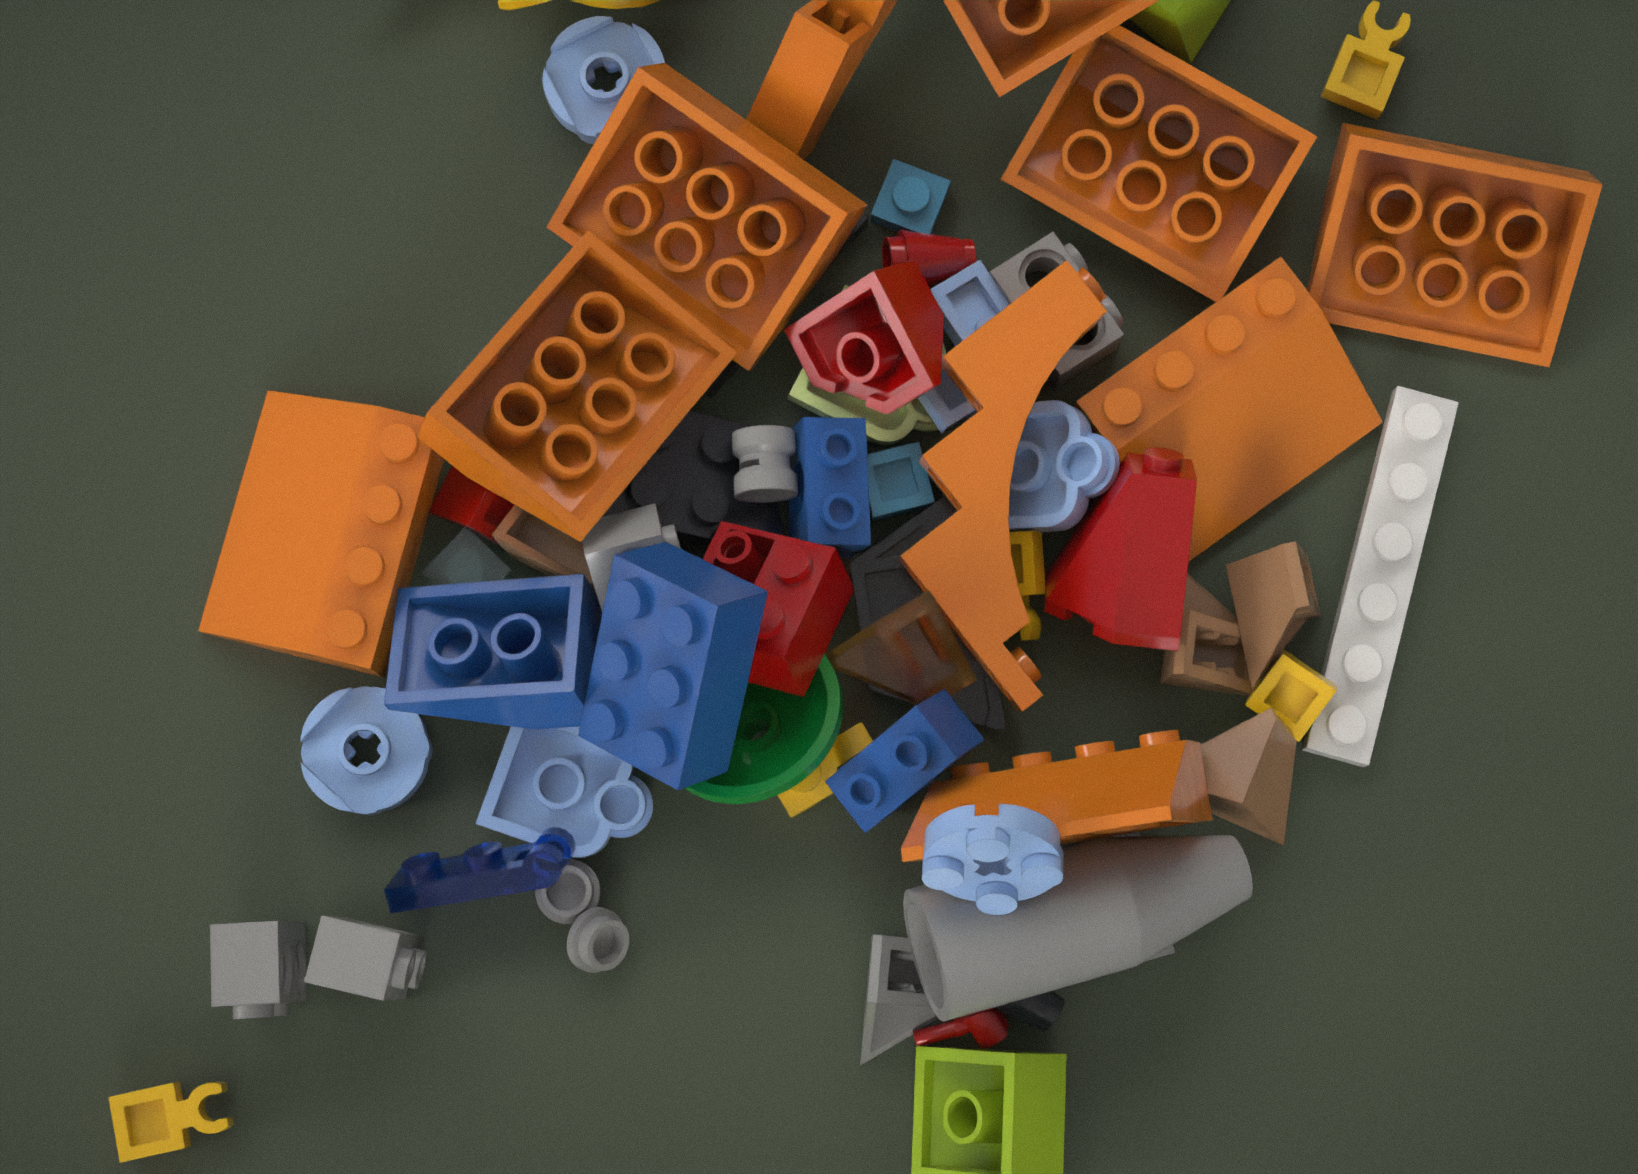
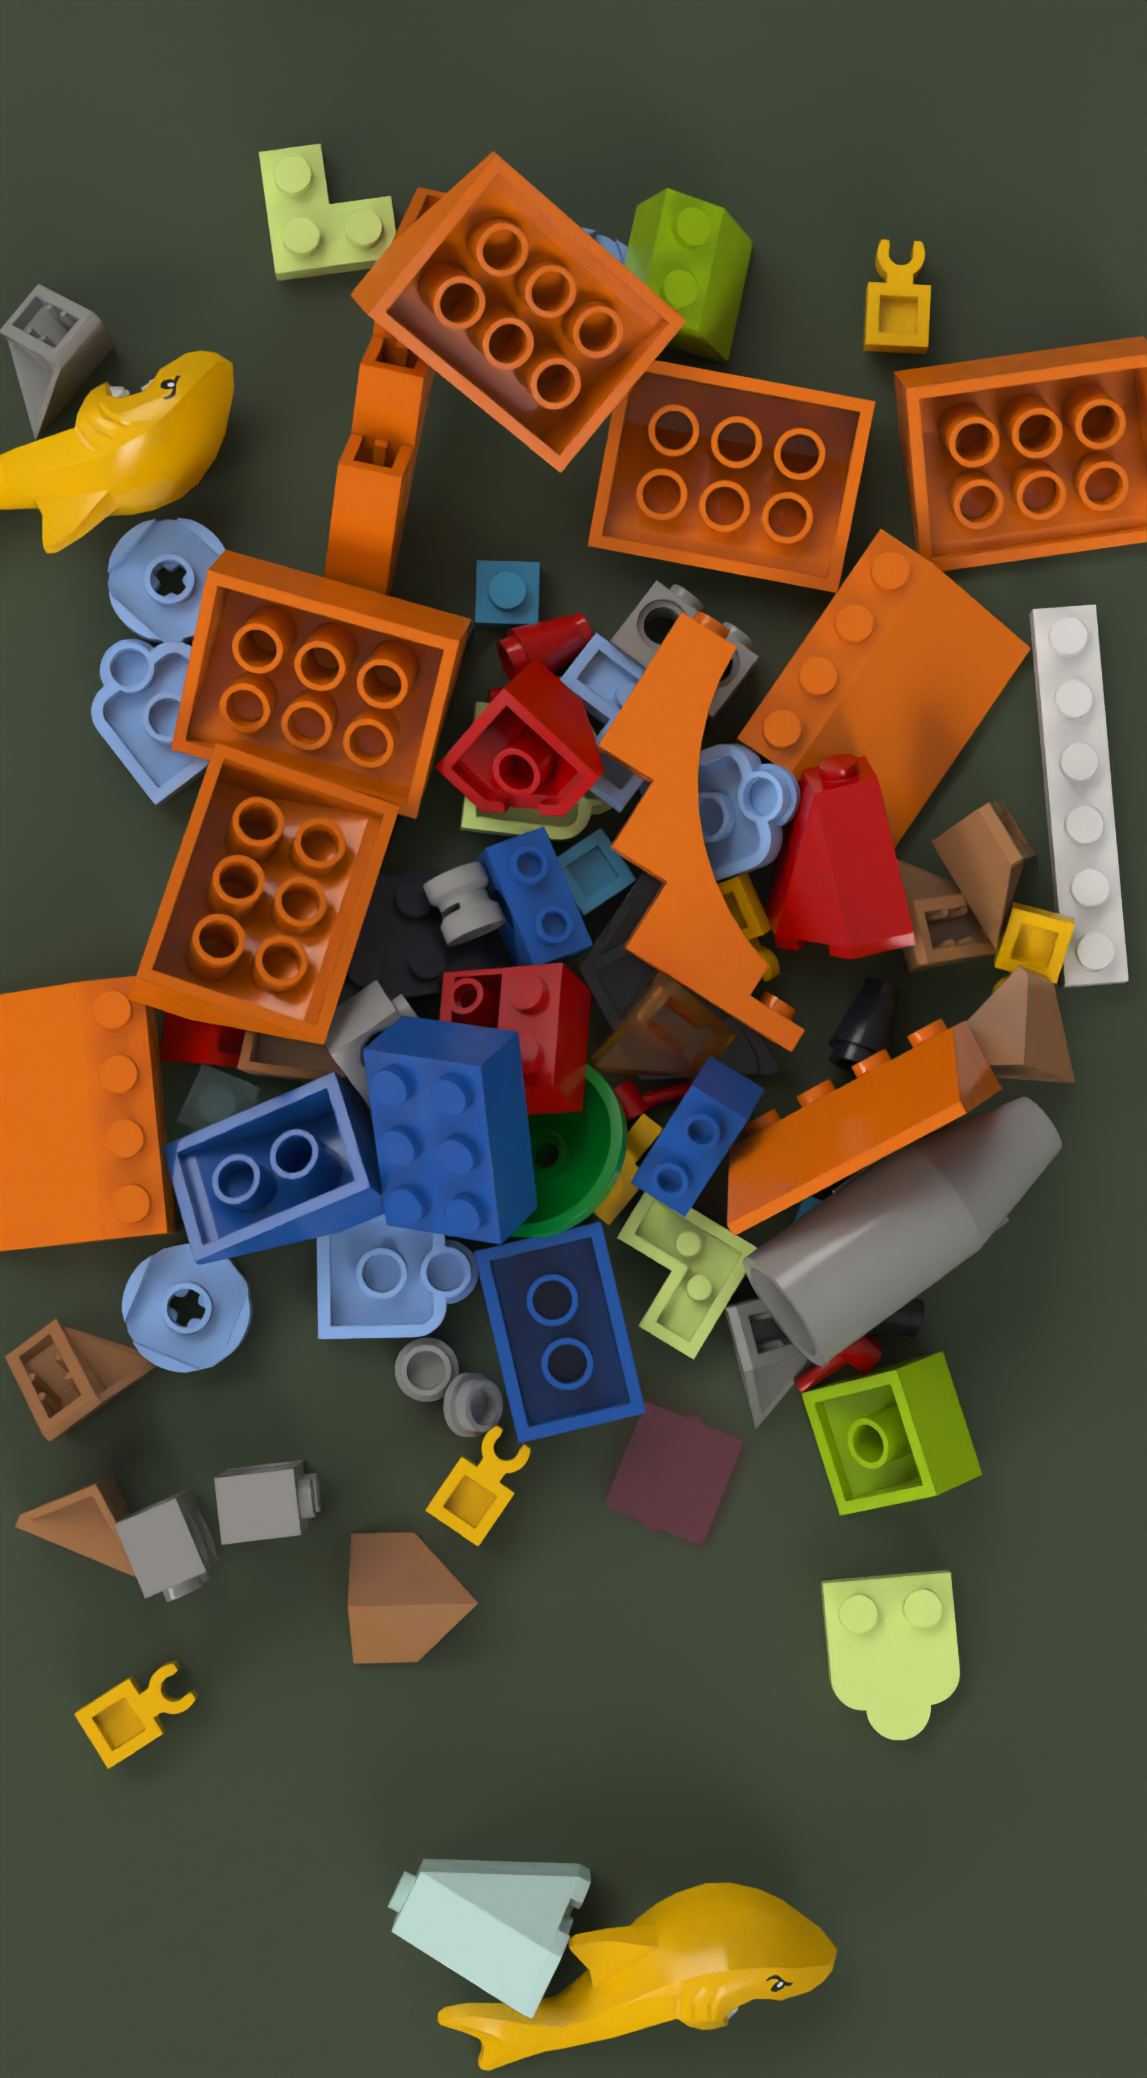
camera: 20 degrees left, 5 degrees up
(185, 911) = (84, 1522): none -> medium nougat slope
(232, 776) = (72, 1375): none -> medium nougat slope
(458, 1101) = (400, 1598): none -> medium nougat slope
(480, 872) = (341, 1383): clear blue plate -> none
(528, 187) = (140, 712): none -> light blue plate
(568, 1027) = (474, 1493): none -> yellow plate
(705, 899) = (559, 1332): none -> blue brick
(766, 1078) = (673, 1473): none -> clear pink piece
(856, 711) = (635, 1104): none -> red hand
(864, 889) = (703, 1268): none -> yellowish green plate
(992, 856) = (815, 1205): light blue plate -> none
(1103, 715) = (866, 1025): none -> black cone

